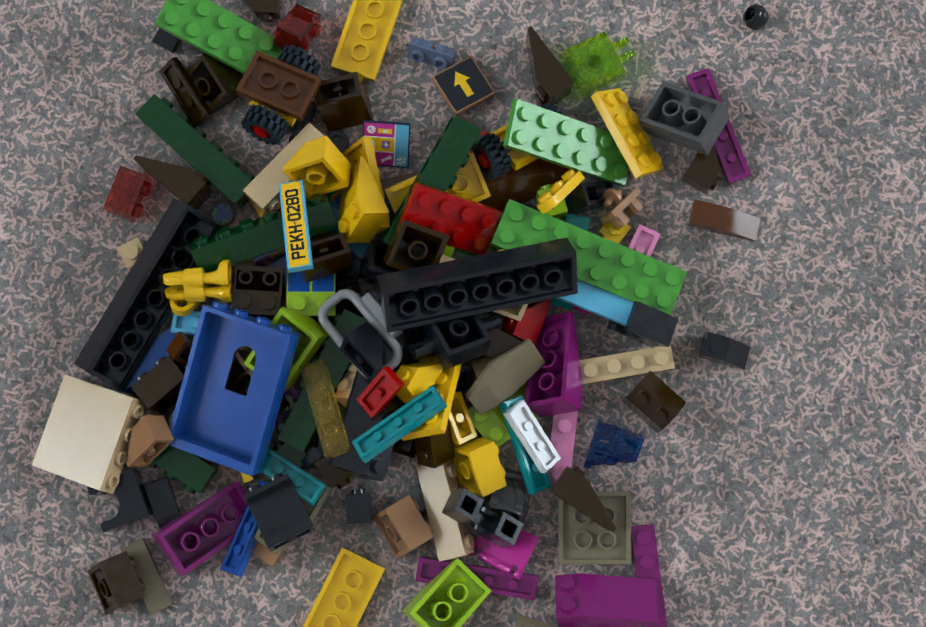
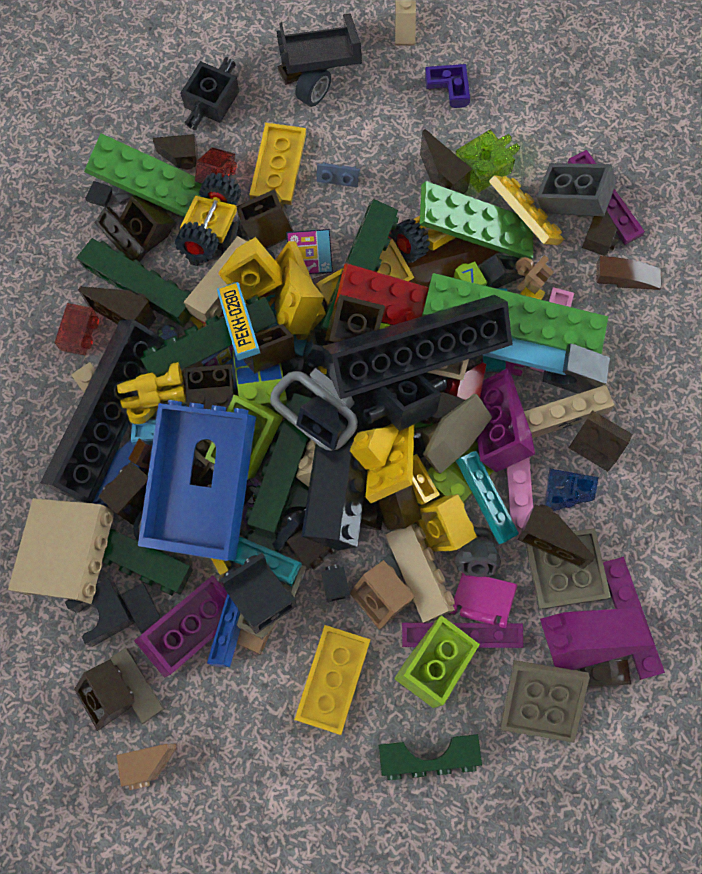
camera: 10 degrees left, 10 degrees down
(148, 440) = (120, 545): medium nougat slope -> none
(279, 85) = (206, 206): reddish brown plate -> none
(325, 409) = (290, 485): clear yellow plate -> none
(380, 391) = (342, 456): red plate -> none
(399, 424) = (365, 484): teal tile -> none
(463, 85) = (368, 188): black tile -> none
(468, 510) = (474, 579): black arch -> none
(532, 436) = (492, 487): white tile -> none
(559, 190) = (476, 261): yellow plate -> none
(724, 350) = (653, 386): black slope -> none
(755, 17) = (618, 104): black piece -> none

